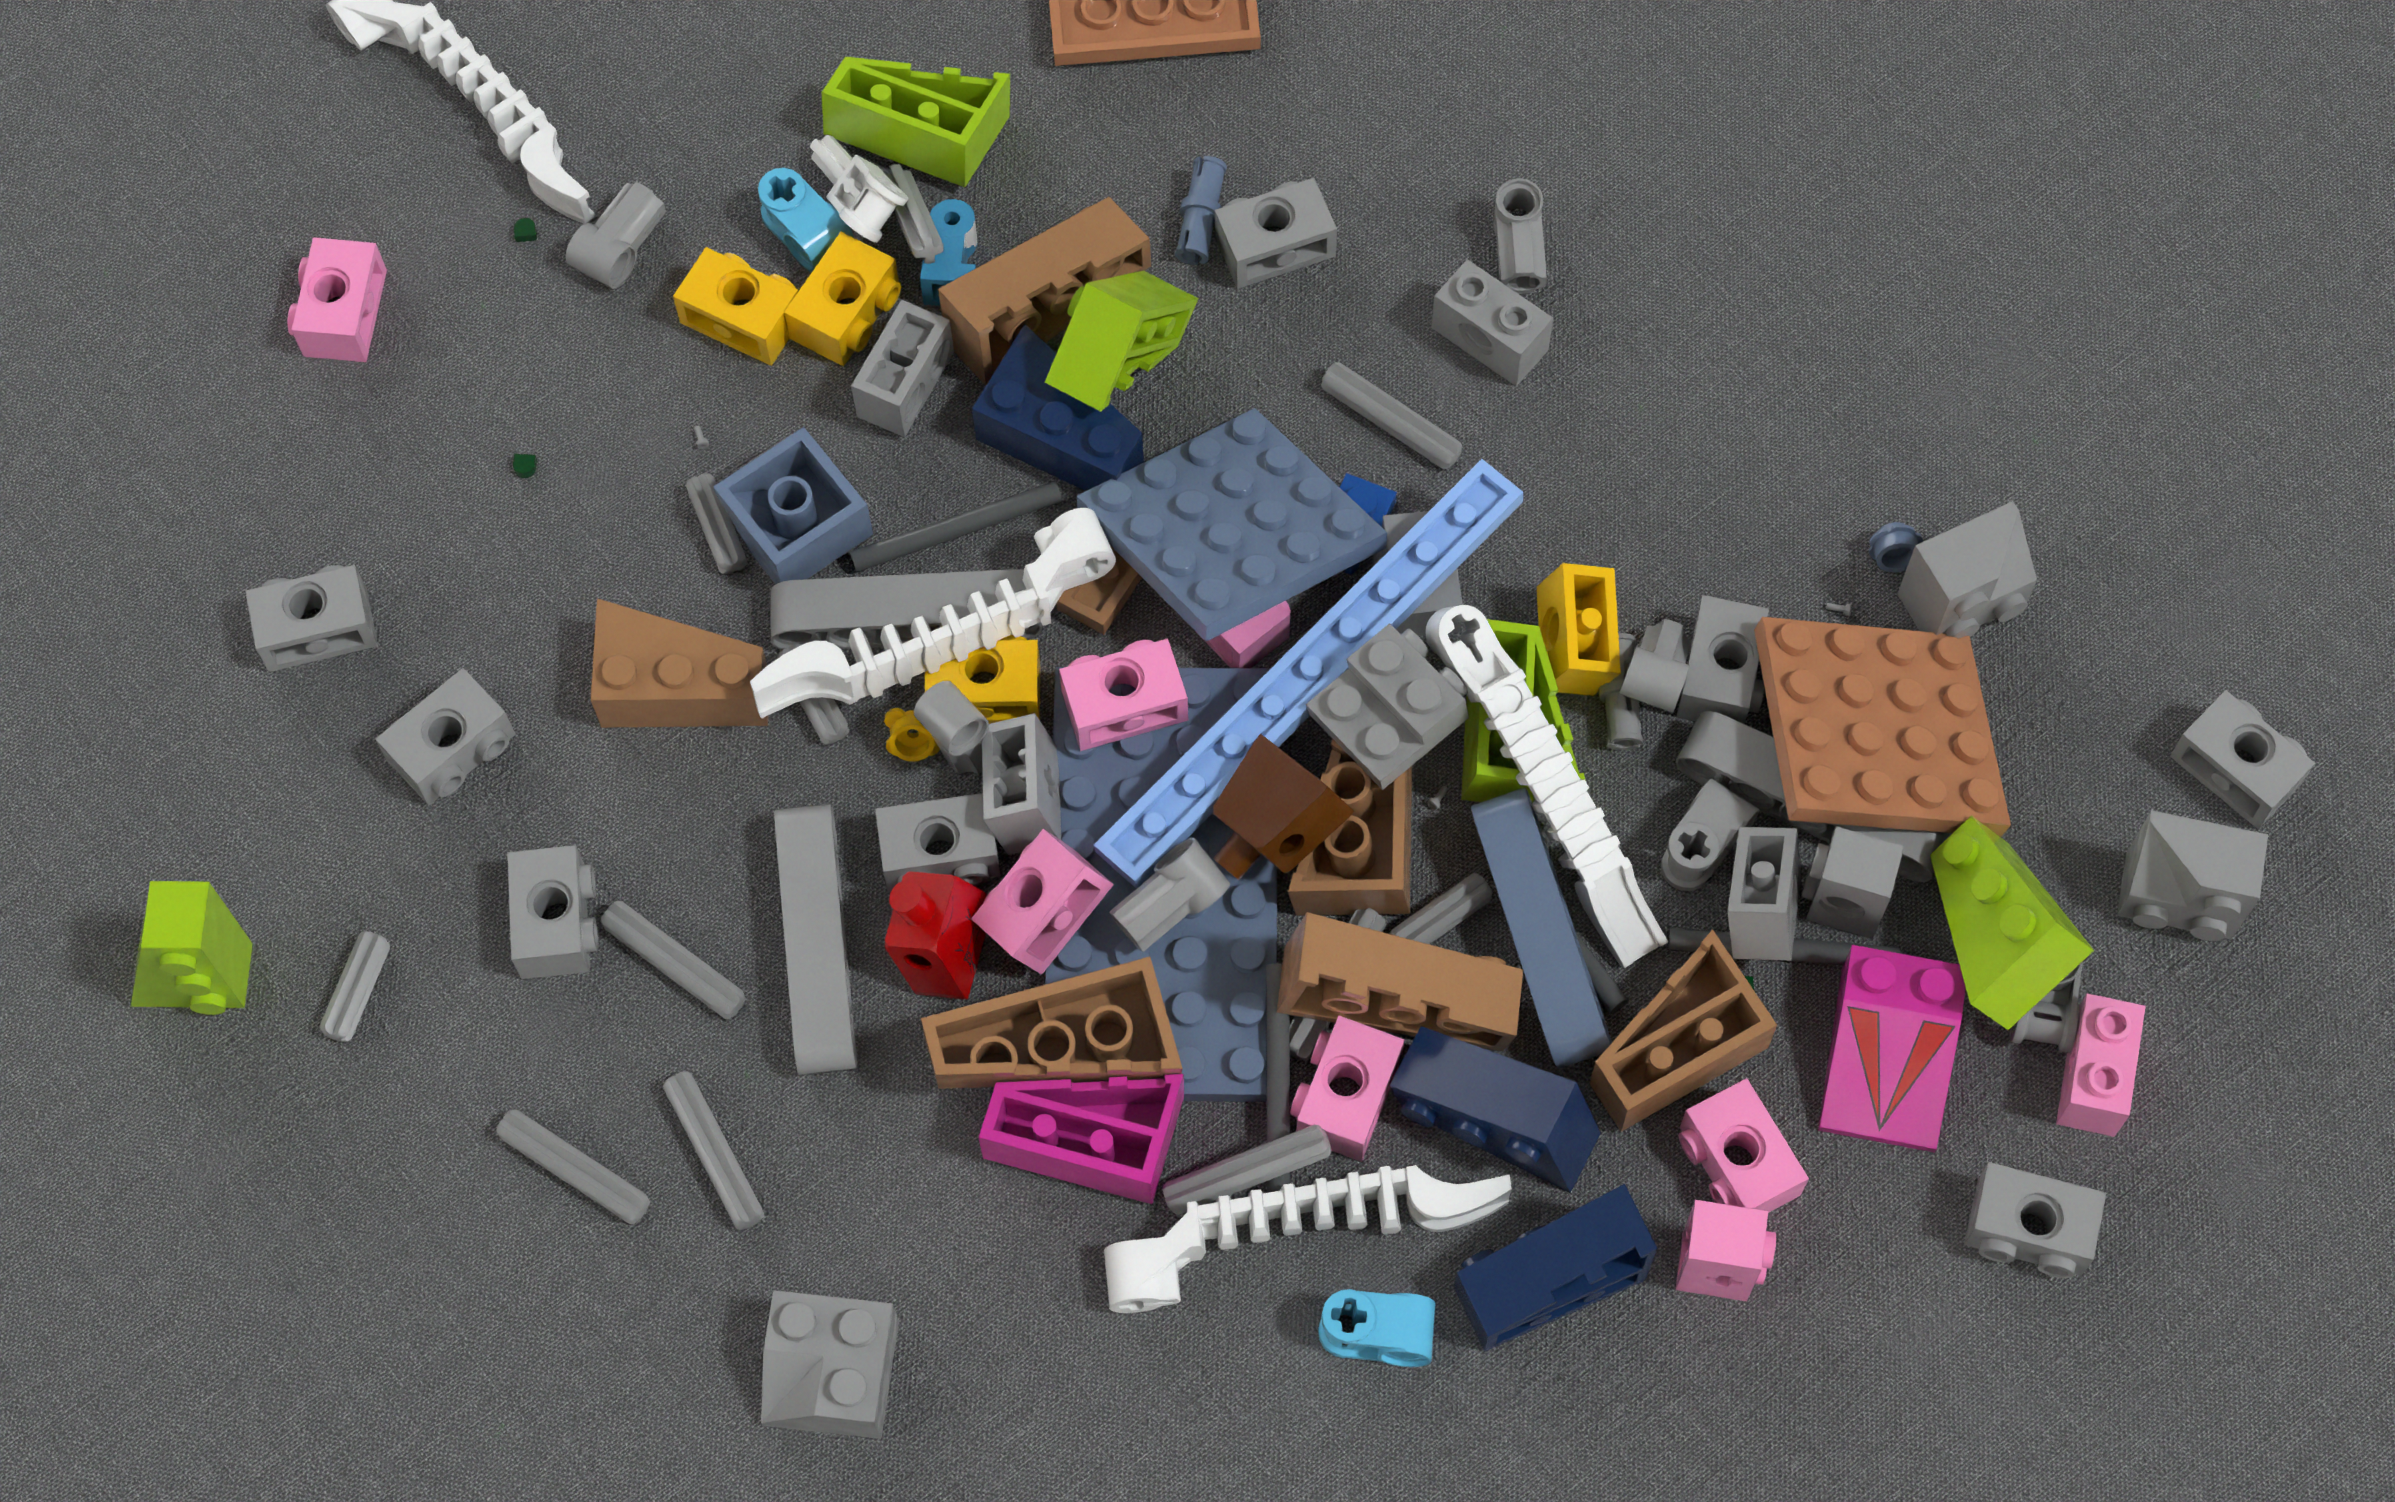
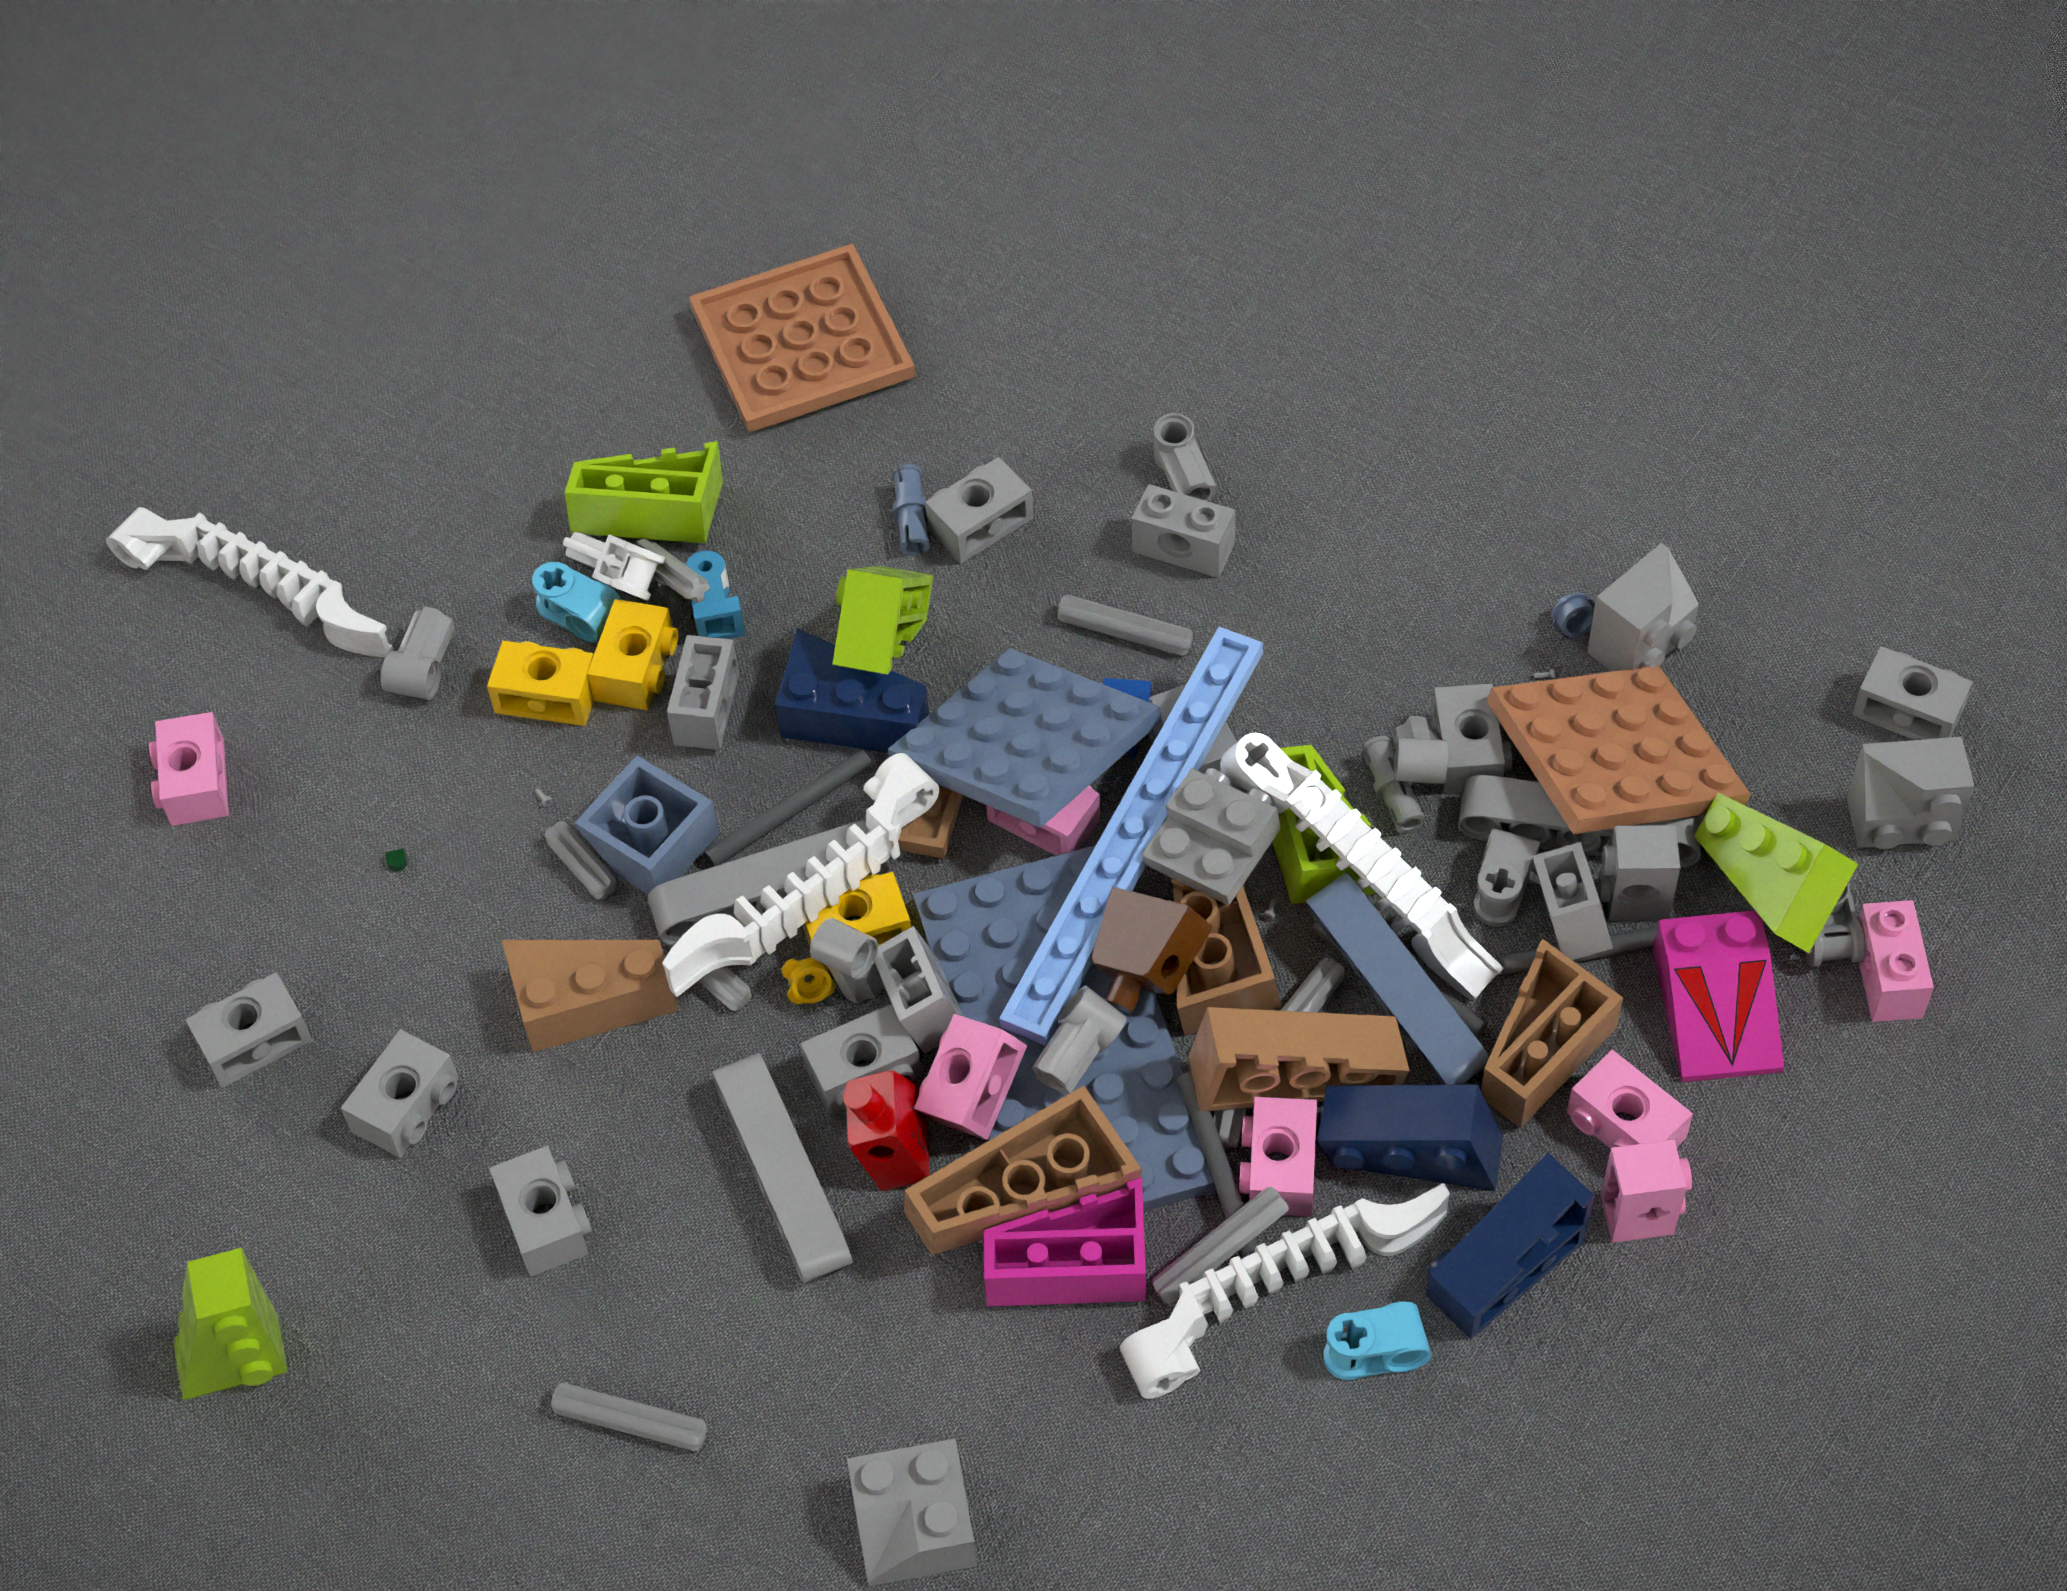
camera: 15 degrees left, 10 degrees down
(354, 986) = (383, 1323): light grey axle -> none
(525, 230) = (336, 674): dark green piece -> none
(673, 959) = (661, 1220): light grey axle -> none
(713, 1150) = (749, 1367): light grey axle -> none
(1038, 282) = (793, 596): medium nougat wedge -> none
(1106, 718) = (972, 915): bright pink brick -> none
(1580, 626) = (1344, 737): yellow brick -> none
(2067, 1209) = (1909, 1081): light grey brick -> none

